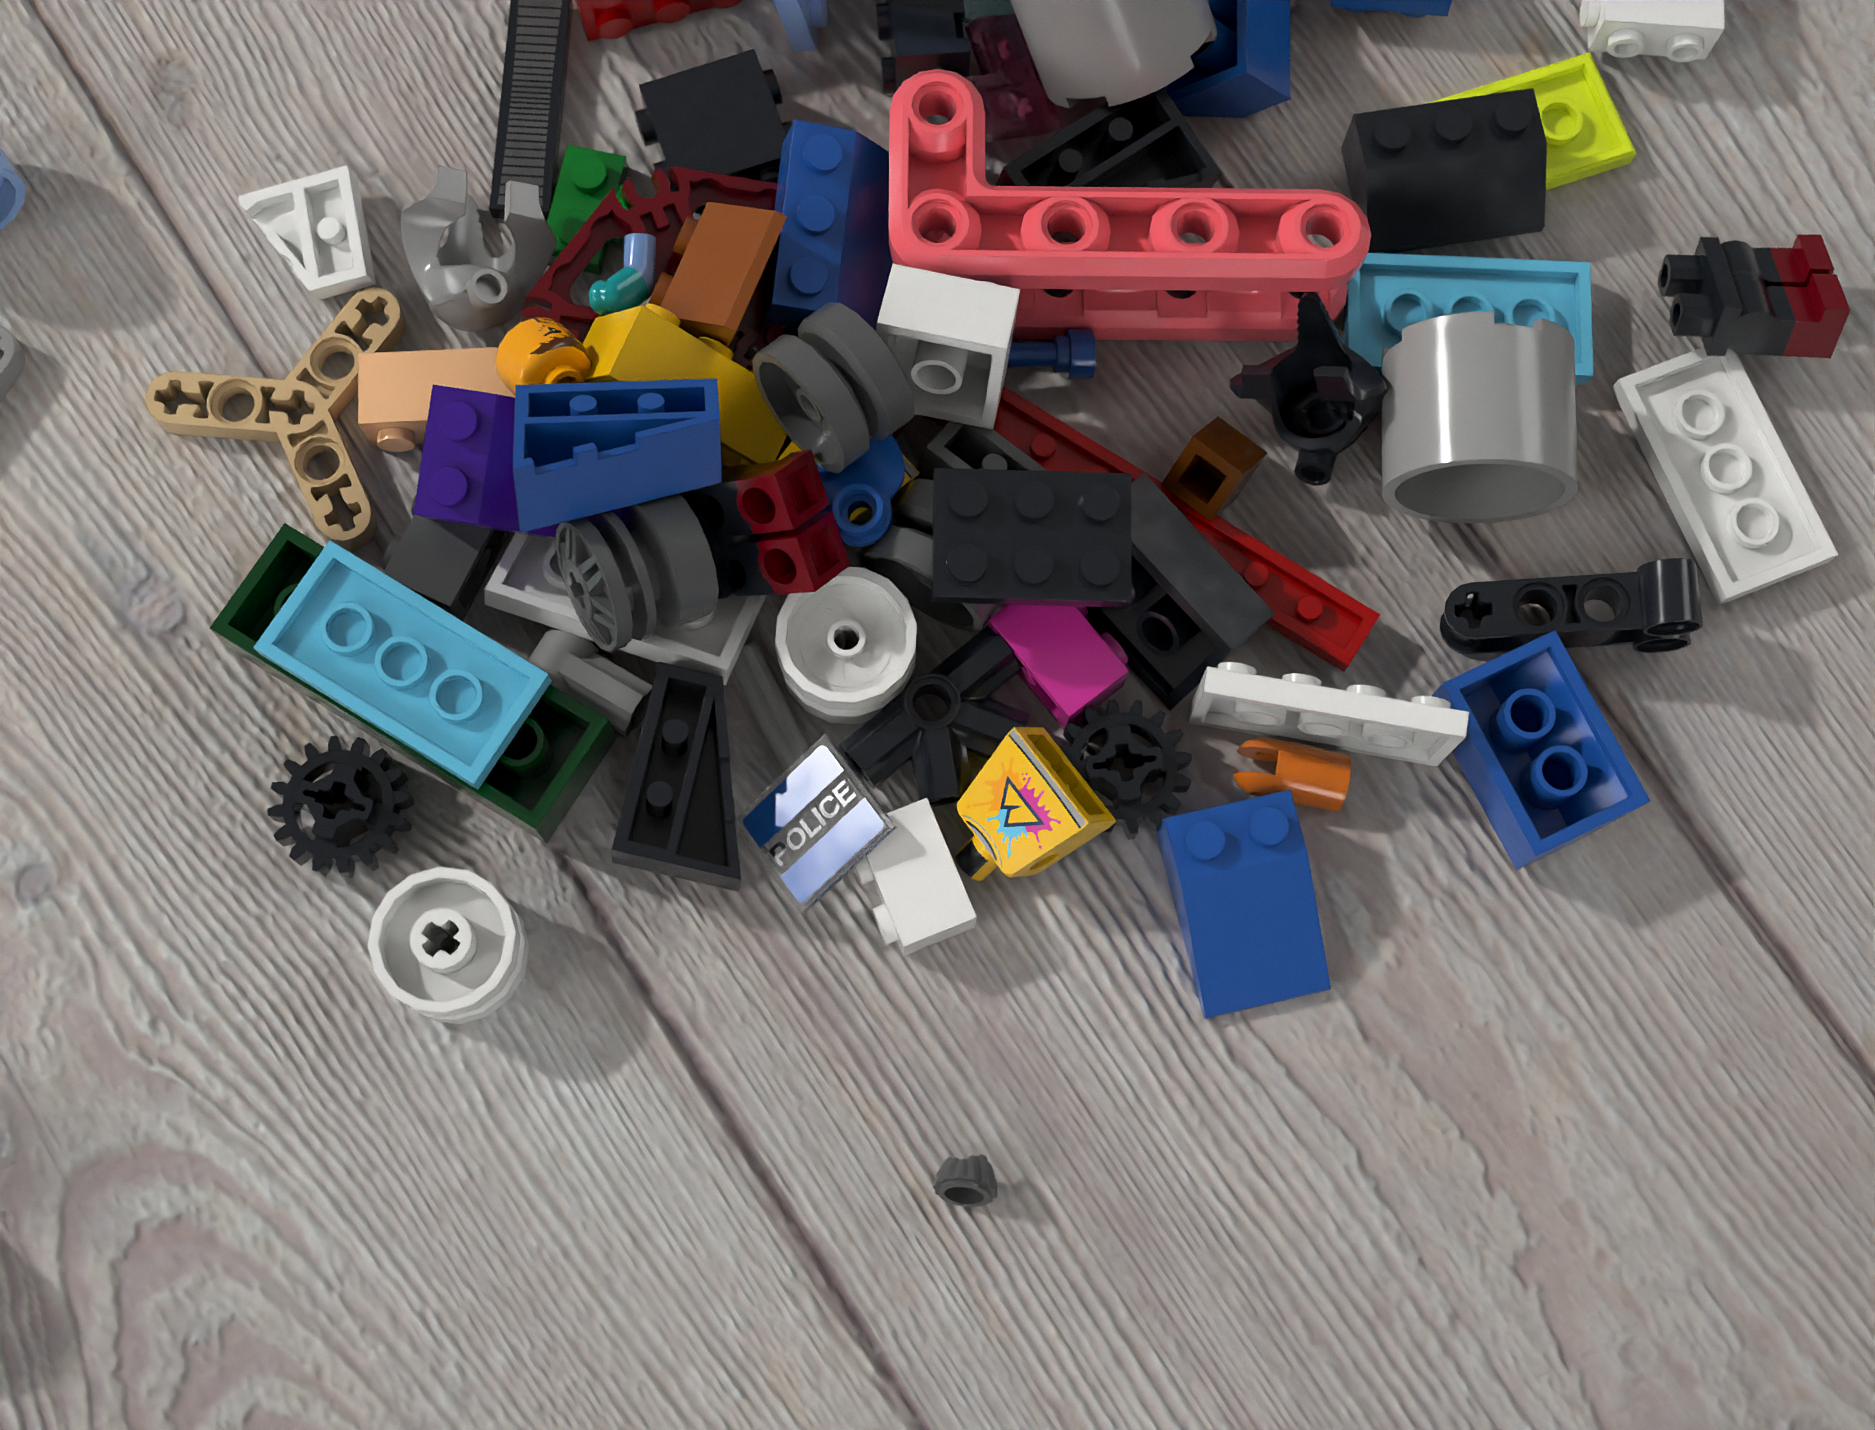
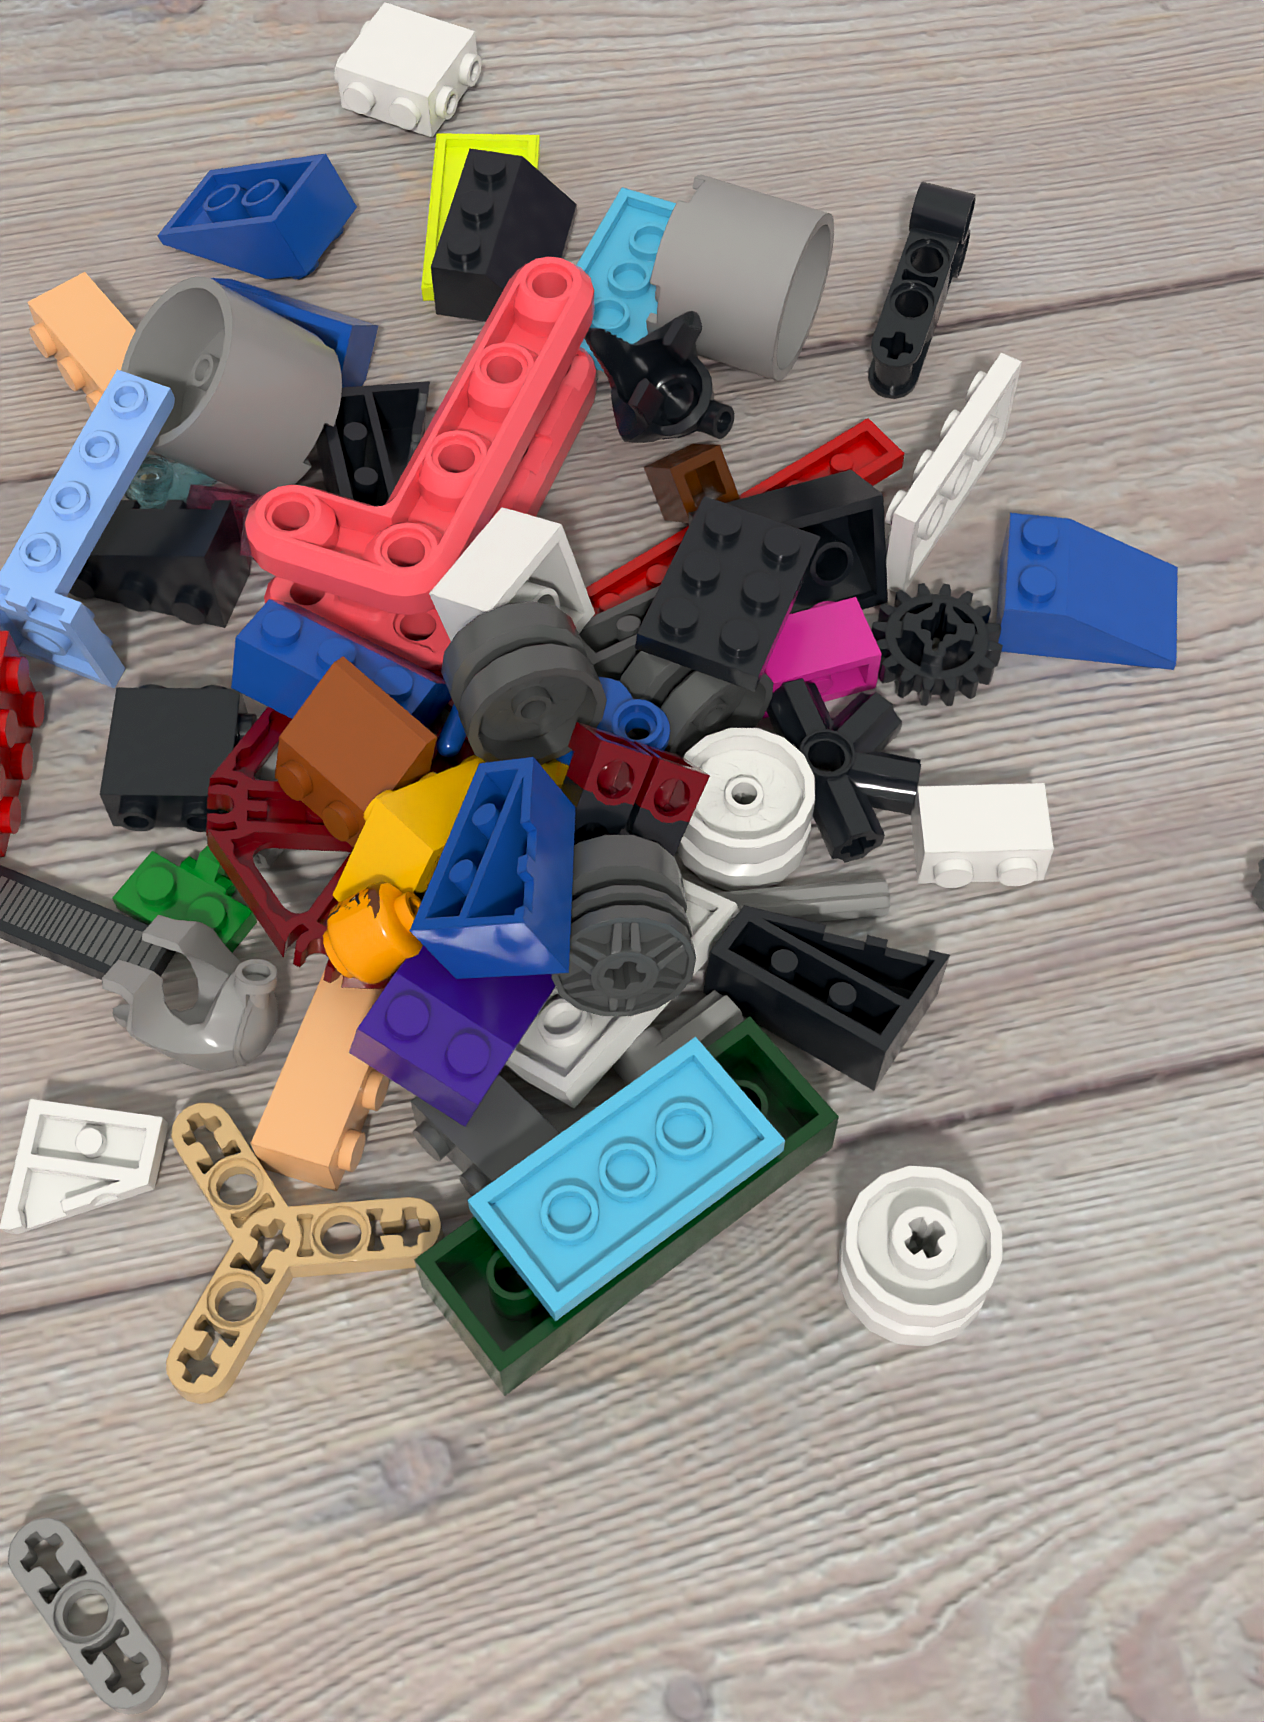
camera: 65 degrees left, 15 degrees down
(336, 832) = (749, 1344): black gear -> none
(631, 284) = (313, 839): arm -> none
(814, 824) = (910, 884): piece -> none
(1027, 808) = (957, 713): yellow torso -> none
(1312, 773) = (983, 521): orange piece -> none
(1540, 751) = (1058, 331): blue slope -> none
(1724, 472) = (836, 167): white plate -> none
(1756, 298) = (706, 91): black hips -> none

